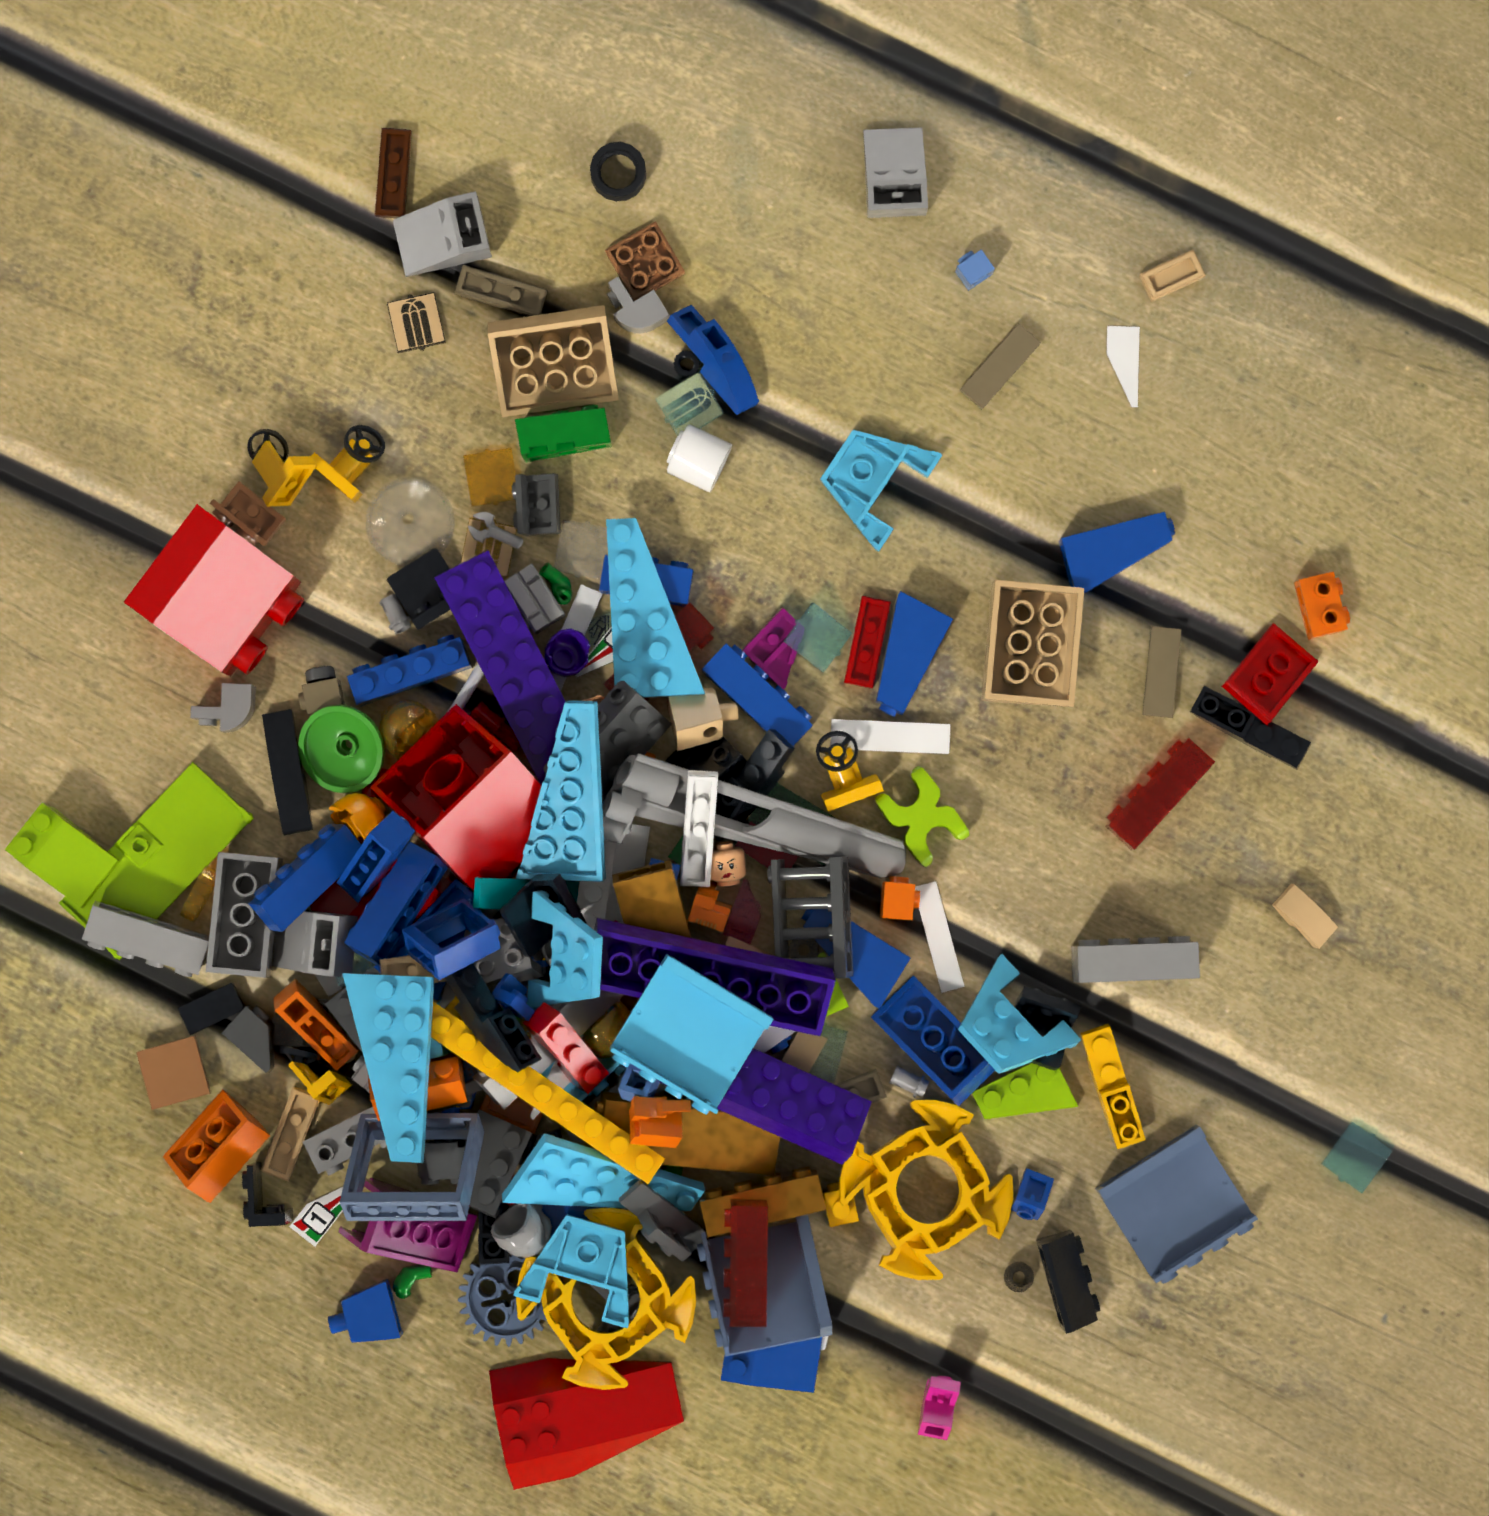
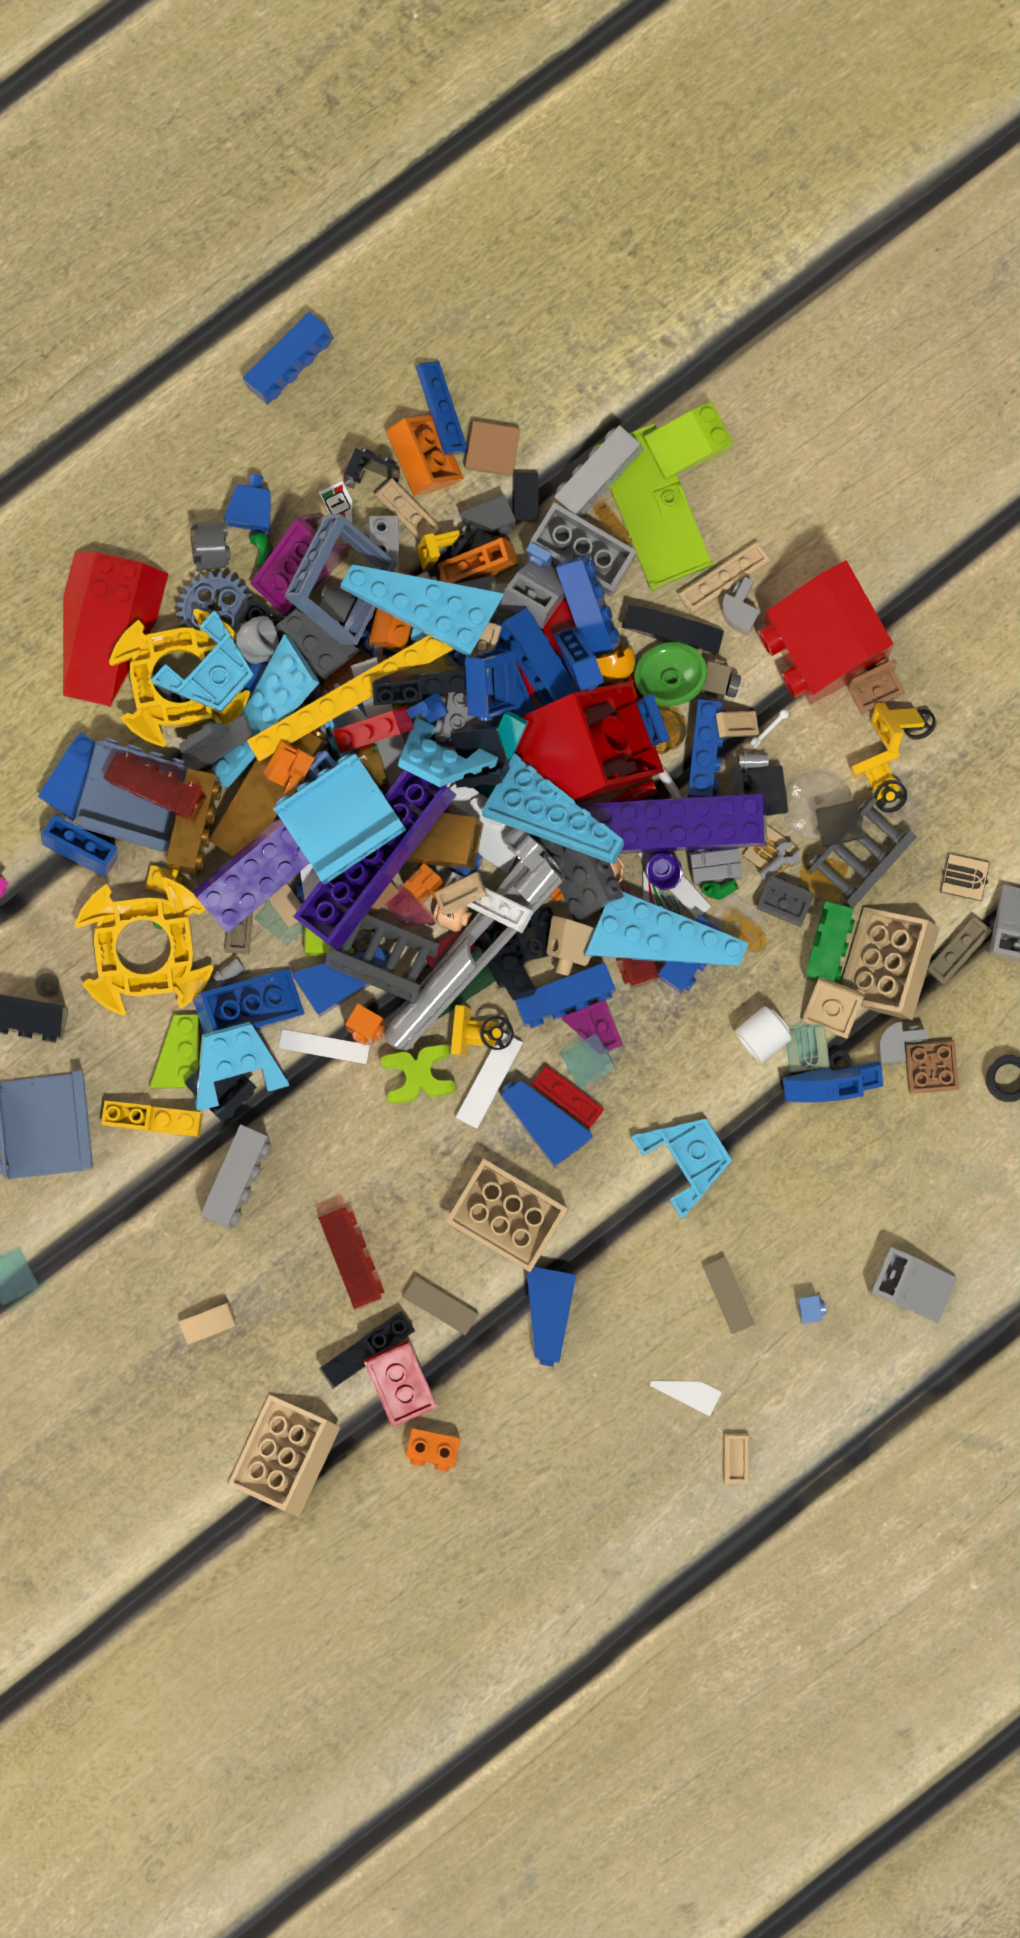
camera: 120 degrees right, 5 degrees down
(153, 1153) = (441, 408): none -> blue tile
(176, 1355) = (288, 358): none -> blue brick
(200, 743) = (724, 577): none -> tan tile
(275, 959) = (539, 556): none -> medium blue plate
(326, 605) = (756, 741): none -> white hinge
(363, 648) = (737, 724): none -> tan tile
(405, 742) = (652, 720): none -> blue tile
(424, 482) = (839, 823): none -> clear smoke piece
(436, 1339) = (209, 545): none -> dark grey brick
(439, 416) = (868, 875): none -> dark grey fence
(586, 531) = (749, 929): none -> clear yellow beam
(631, 397) = (833, 1006): none -> tan tile
(702, 863) = (460, 893): none -> tan tile
(848, 1317) = (79, 846): none -> blue brick
(1032, 1195) = (102, 1022): blue bracket -> none
(1407, 763) = (284, 1455): none -> tan slope

